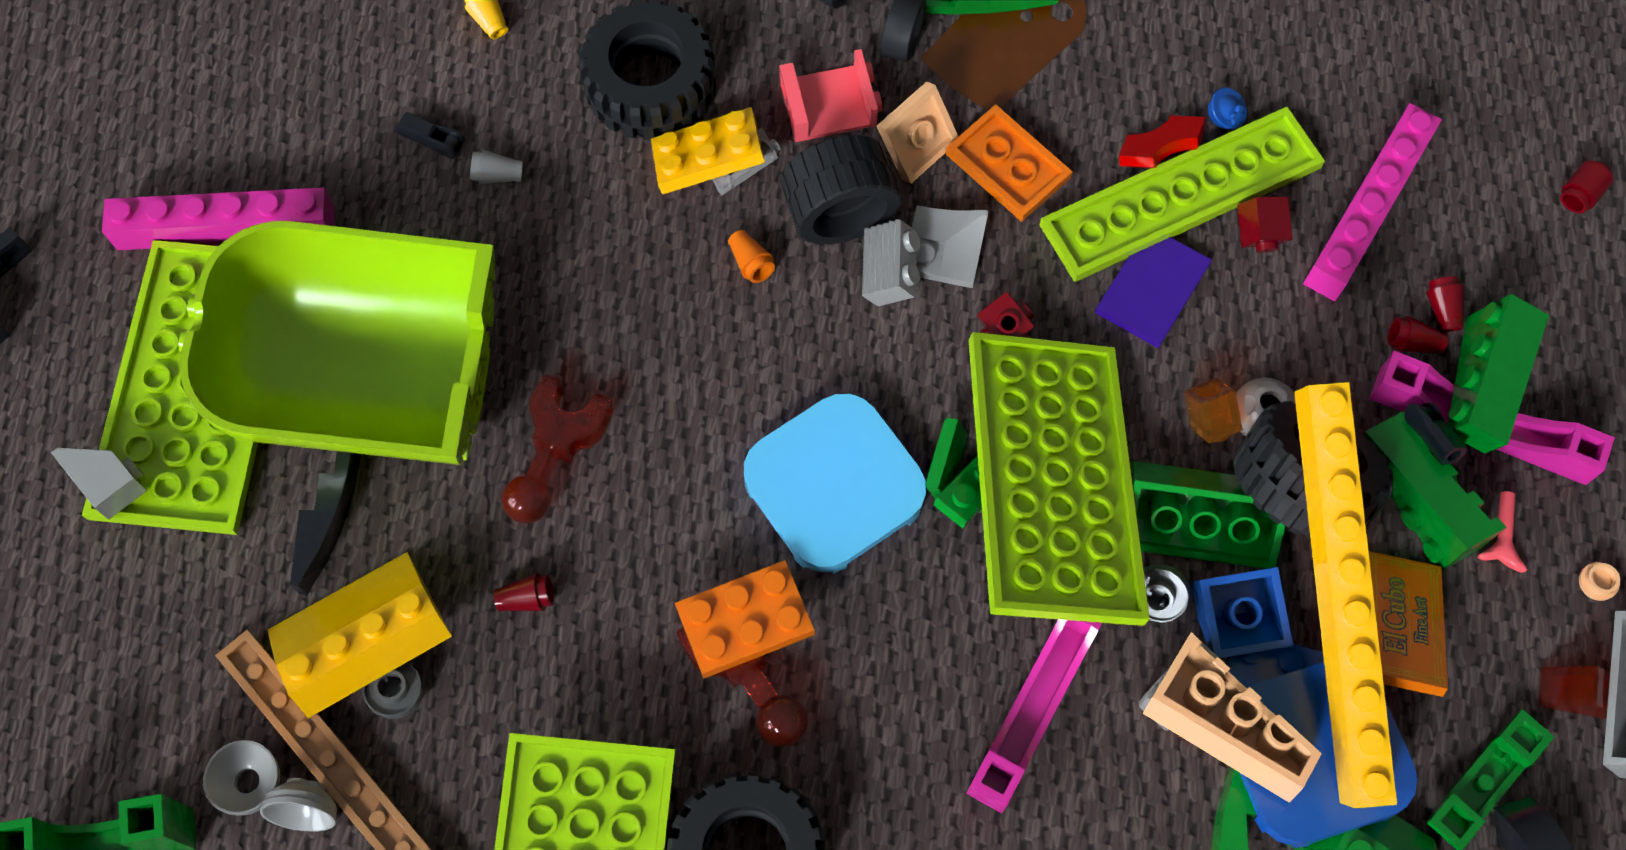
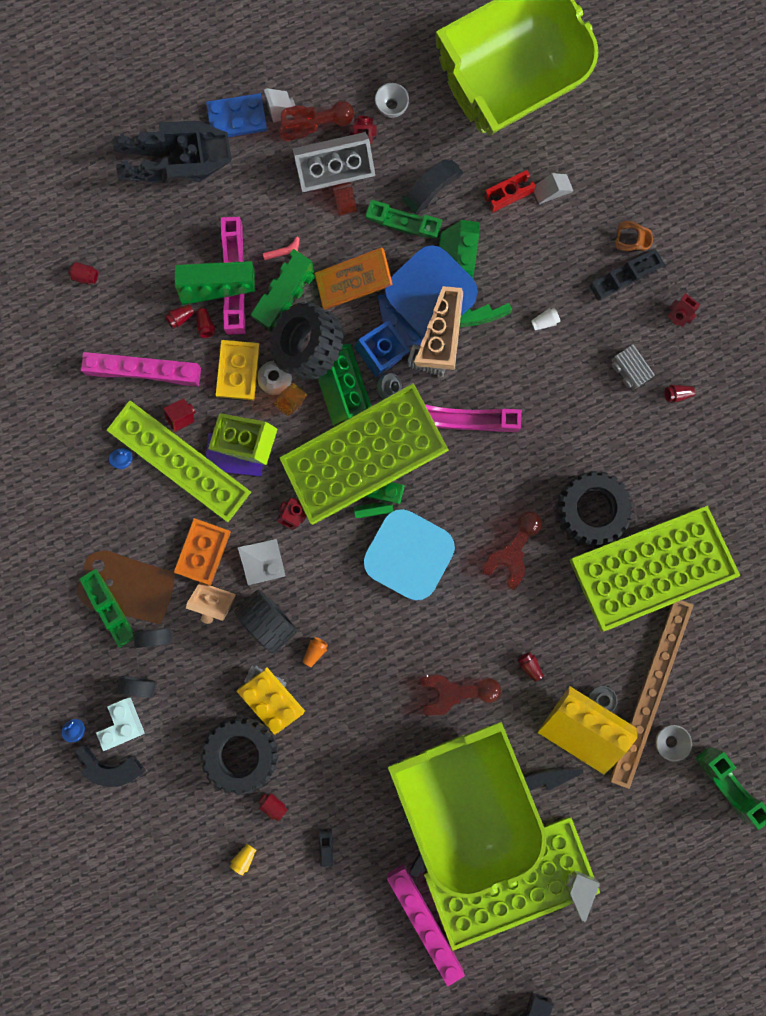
camera: 120 degrees left, 15 degrees up
(300, 806) = (670, 709): light grey piece -> none
(494, 168) = (329, 804): light grey cone -> none
(541, 85) = (272, 806): none -> dark red brick
(744, 619) = (496, 560): orange plate -> none
(830, 99) = (208, 656): coral panel -> none
(890, 263) = (287, 581): light grey brick -> none
(1173, 136) = (148, 476): red tile -> none
(1174, 302) = (243, 438): none -> lime slope
(1303, 349) = (237, 370): none -> yellow plate
(1345, 596) = (367, 303): yellow brick -> none
(1435, 432) = (255, 299): black bar -> none
(1599, 581) = (287, 204): light nougat plate -> none

